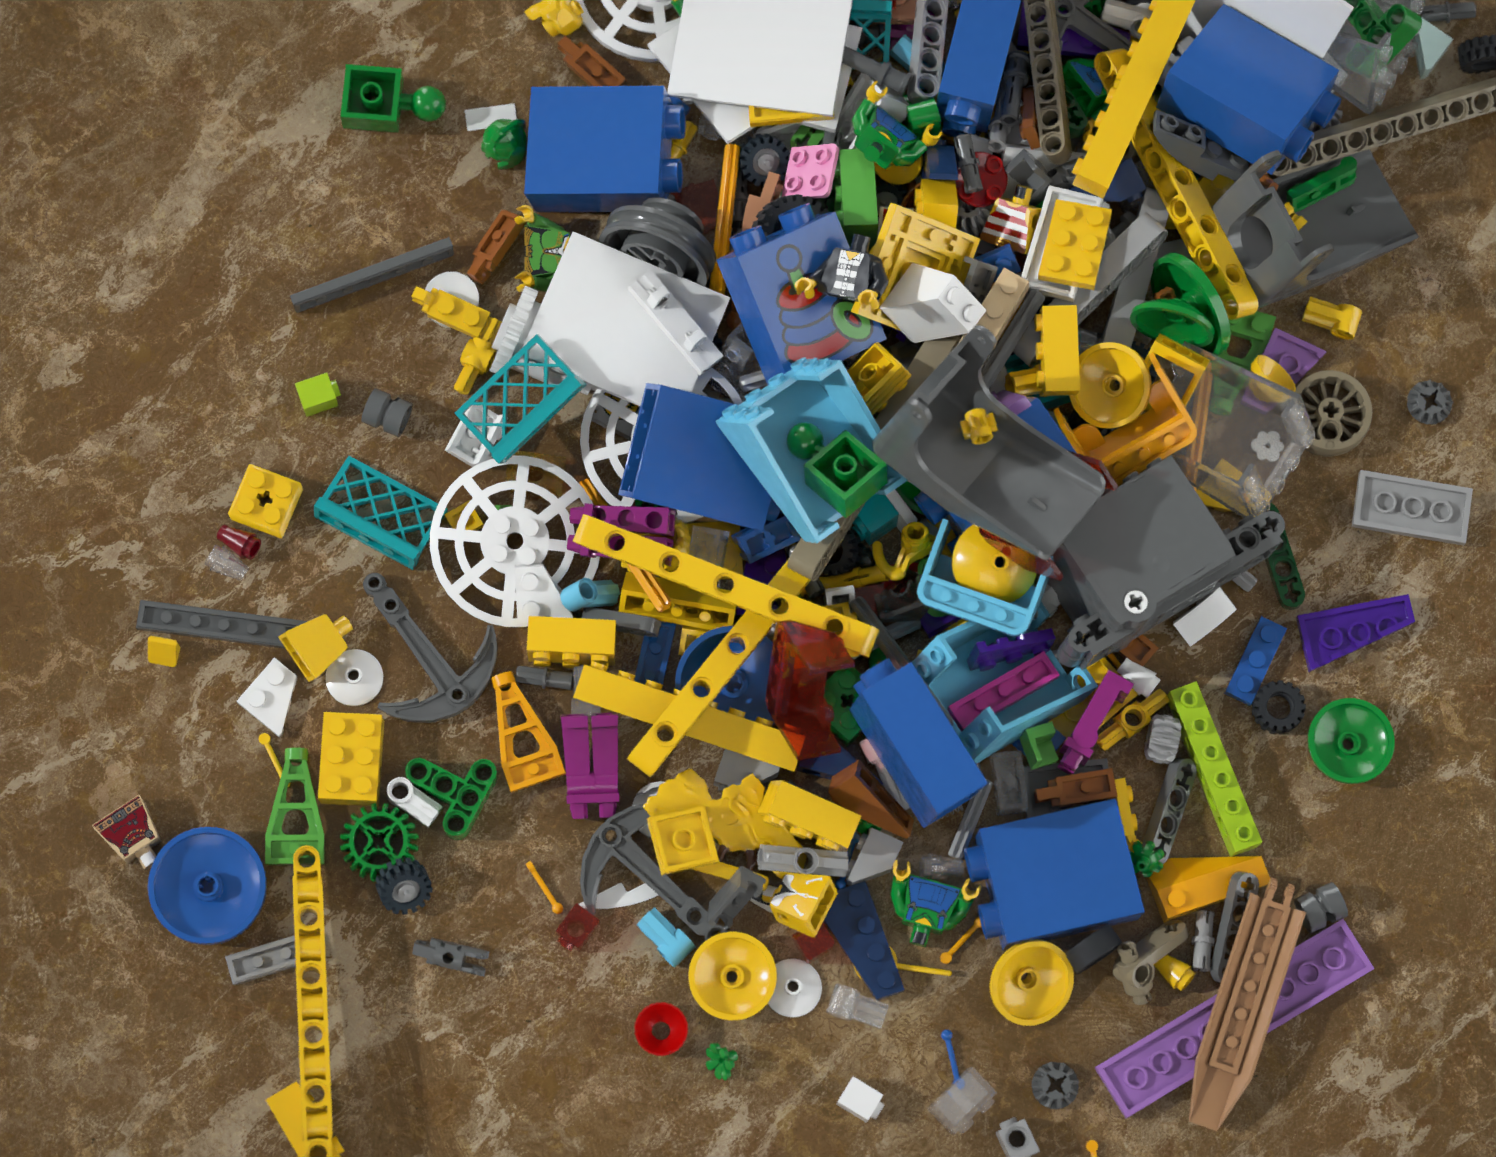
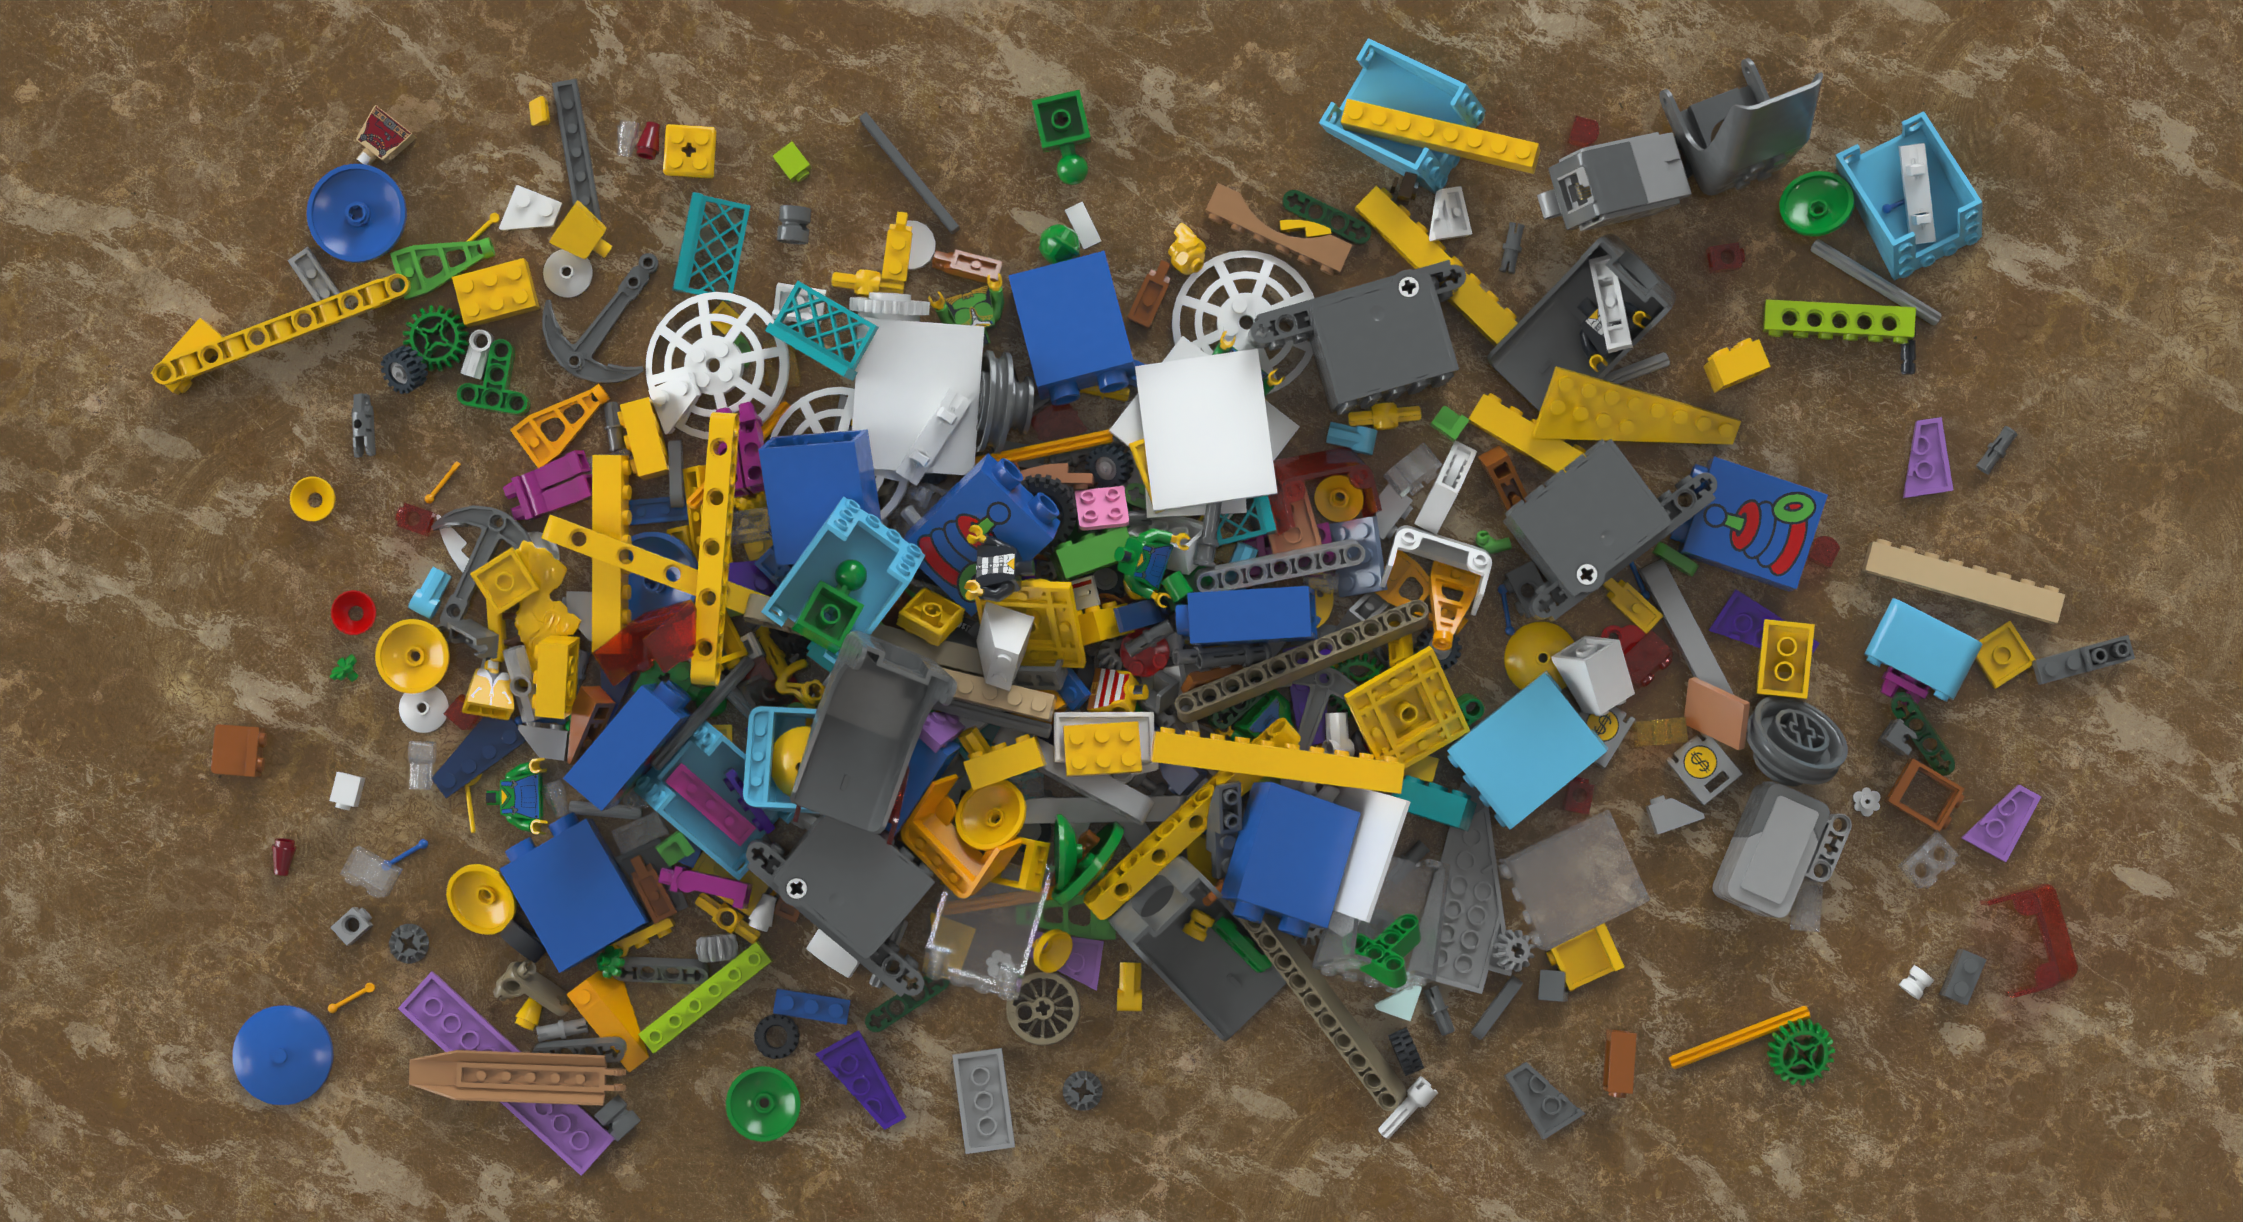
camera: 85 degrees right, 10 degrees up
(510, 1021) = (300, 499): none -> yellow piece
(589, 594) = (690, 441): medium azure piece -> none
(946, 957) = (486, 824): light orange hinge -> none
(978, 426) = (900, 714): yellow gear -> none

